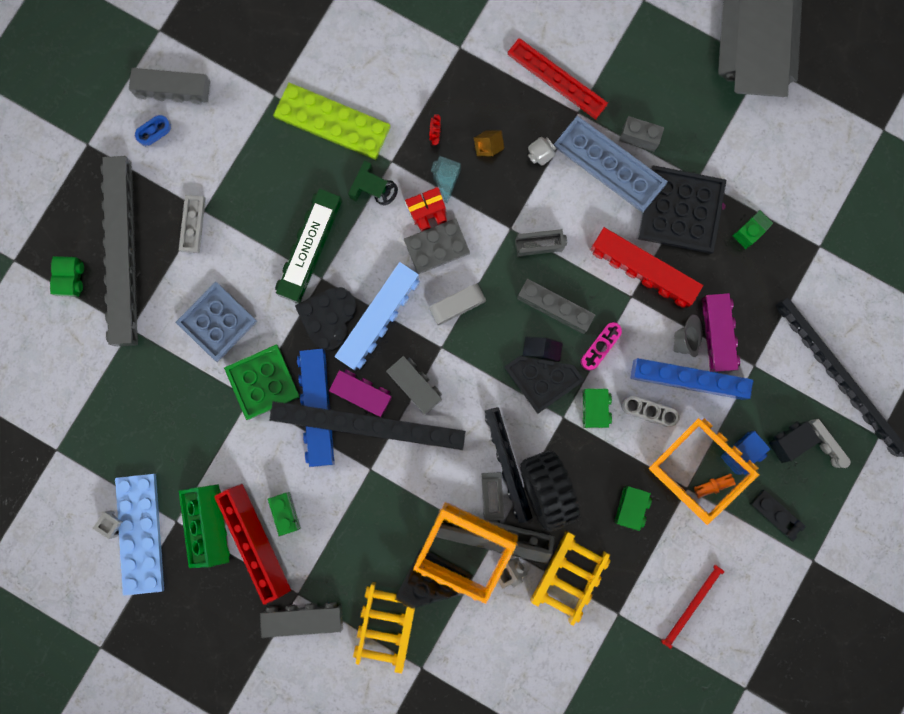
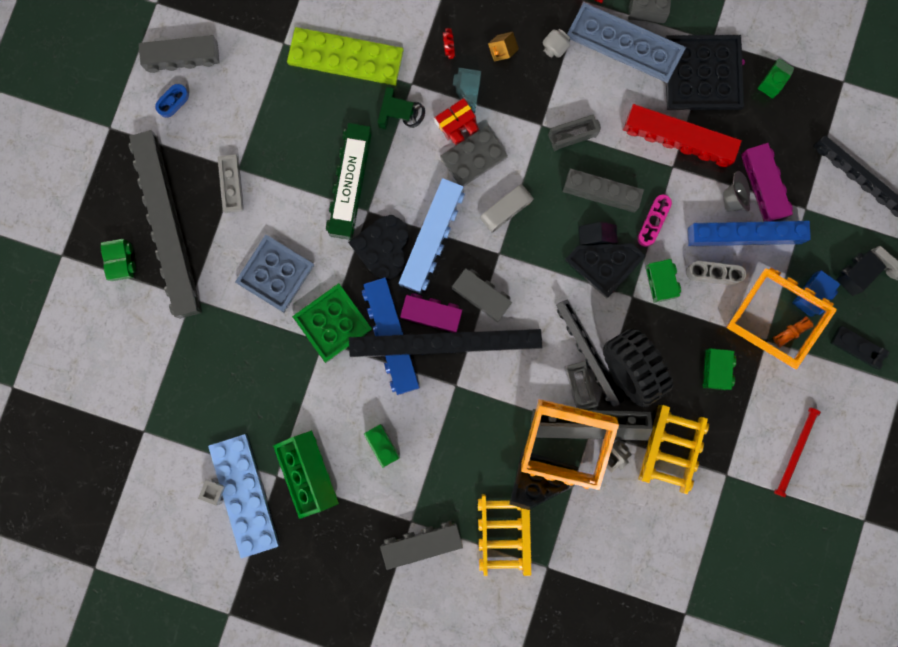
camera: 10 degrees left, 0 degrees up
(252, 543) = (357, 480): red brick -> none

